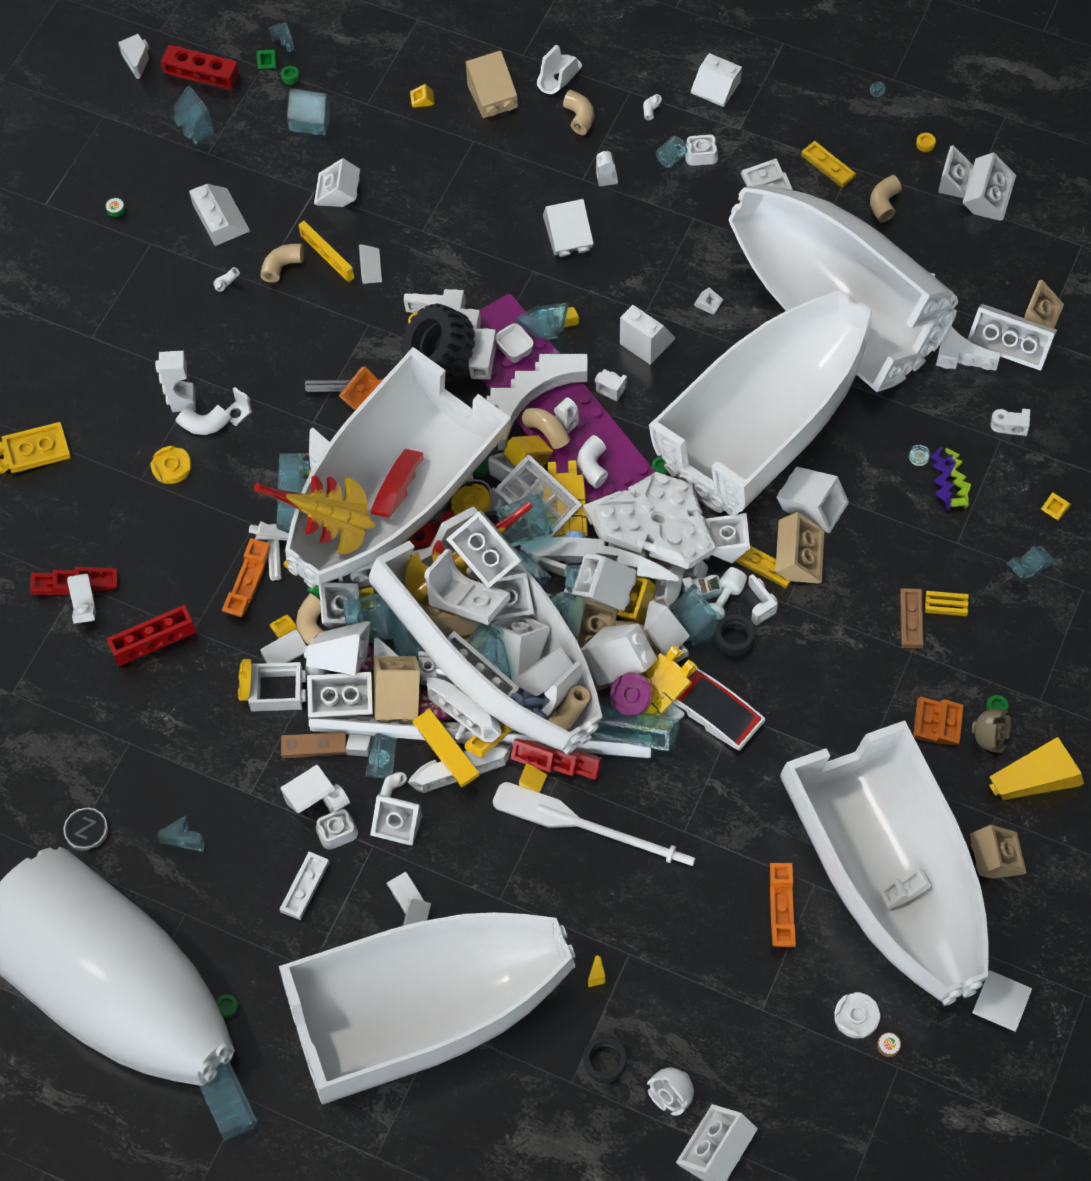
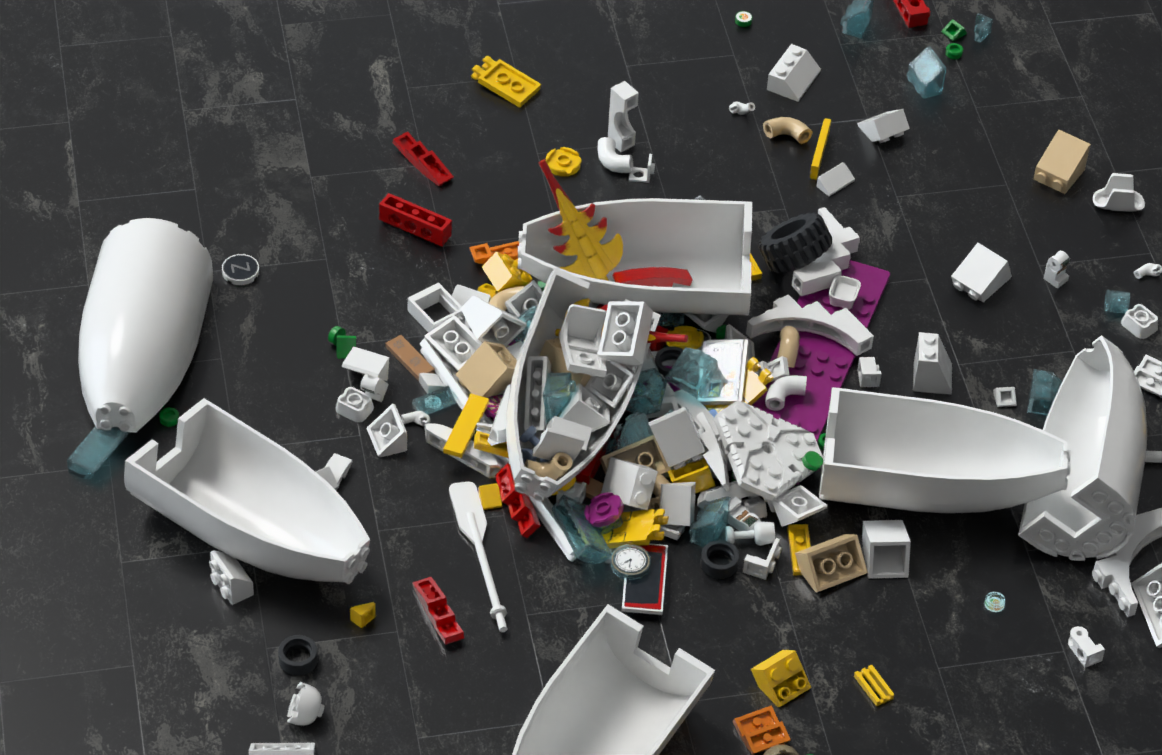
camera: 50 degrees right, 15 degrees down
(81, 598) = (411, 168): white bracket -> none
(177, 835) = (277, 320): clear light blue slope -> none
(240, 793) = (337, 330): none -> green tile
(244, 680) = (419, 285): yellow tile -> none
(261, 793) = (345, 345): none -> green slope
(279, 598) = (504, 272): none -> yellow slope
(304, 885) = (294, 409): white plate -> none
(422, 96) = (1014, 134): yellow slope -> none
(476, 1067) = (230, 577): none -> white slope
(520, 447) = (759, 345): yellow brick -> none
(544, 320) = (882, 301): clear light blue slope -> none
(565, 452) = (777, 367): none -> white slope
(566, 413) = (808, 350): white leg -> none
(571, 318) = (903, 317): yellow slope -> none
(583, 110) = (1096, 232): tan cylinder -> none
(633, 904) = (437, 610): none -> red slope
(693, 492) = (812, 460): none -> green tile
(699, 709) = (630, 562): none -> tile
(730, 270) = (1042, 391): none -> clear light blue slope
(782, 905) = (511, 706): orange slope -> none
(895, 669) = (781, 677): none -> yellow slope
(911, 618) = (839, 668): medium nougat tile -> none
(944, 493) = (974, 634): piece -> none
(1031, 563) = (966, 726): clear light blue slope -> none
(1056, 506) = (1035, 717): yellow slope -> none

